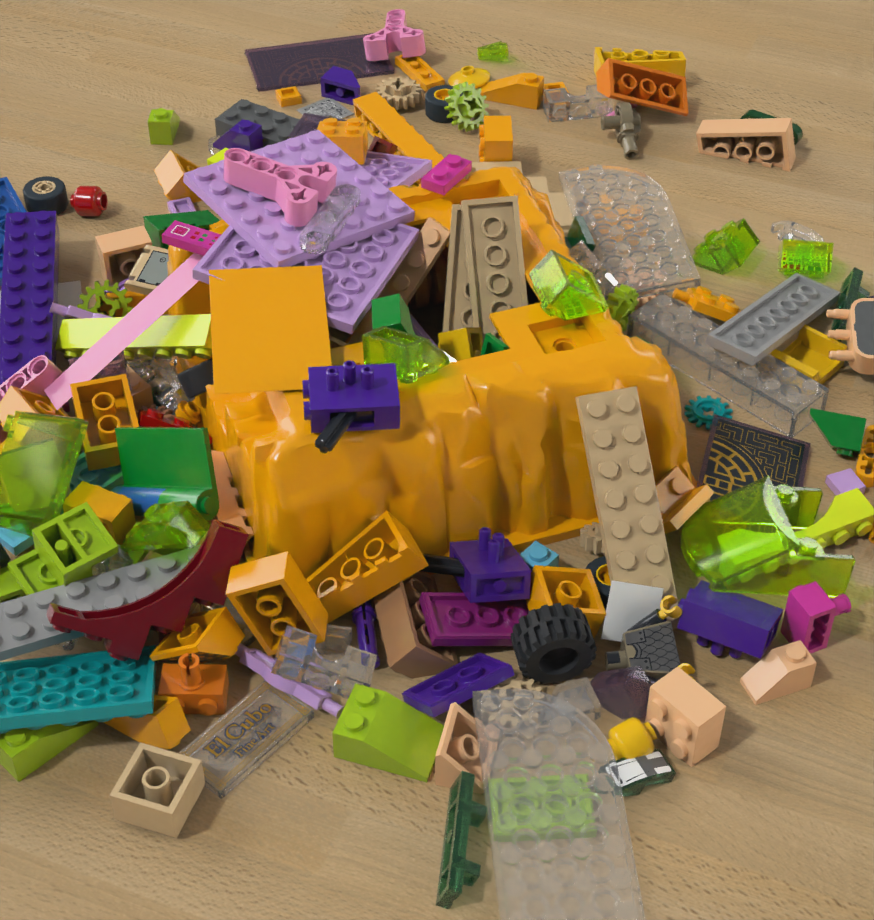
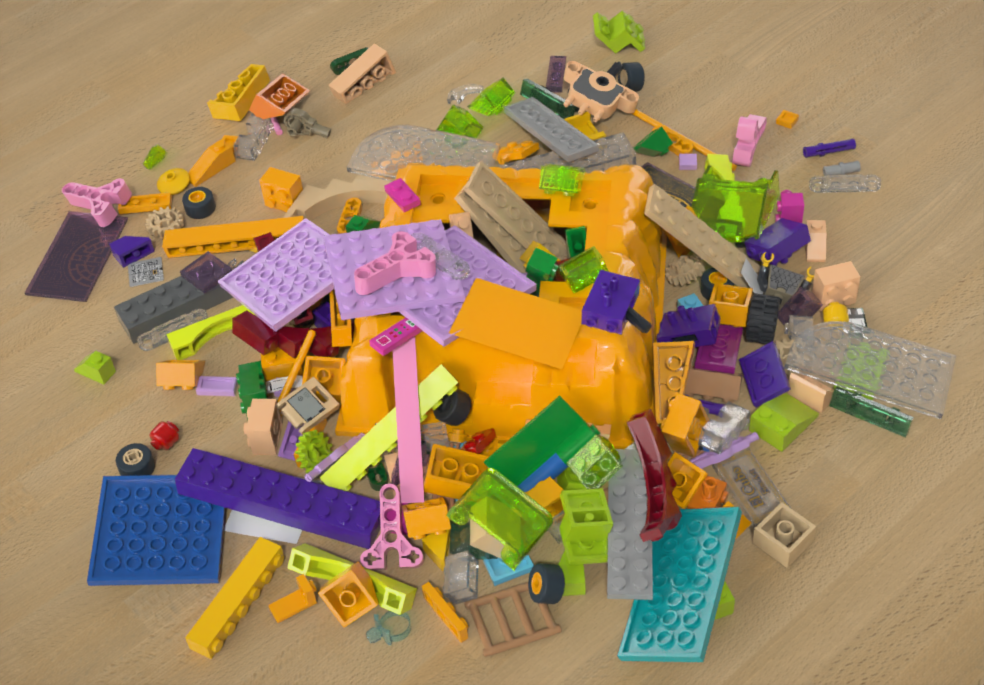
camera: 60 degrees left, 5 degrees up
(242, 135) = (163, 321): dark purple slope -> none
(288, 96) = (111, 285): light orange tile -> none
(347, 135) = (257, 255): light orange brick -> none
(467, 106) = (221, 190): lime gear -> none

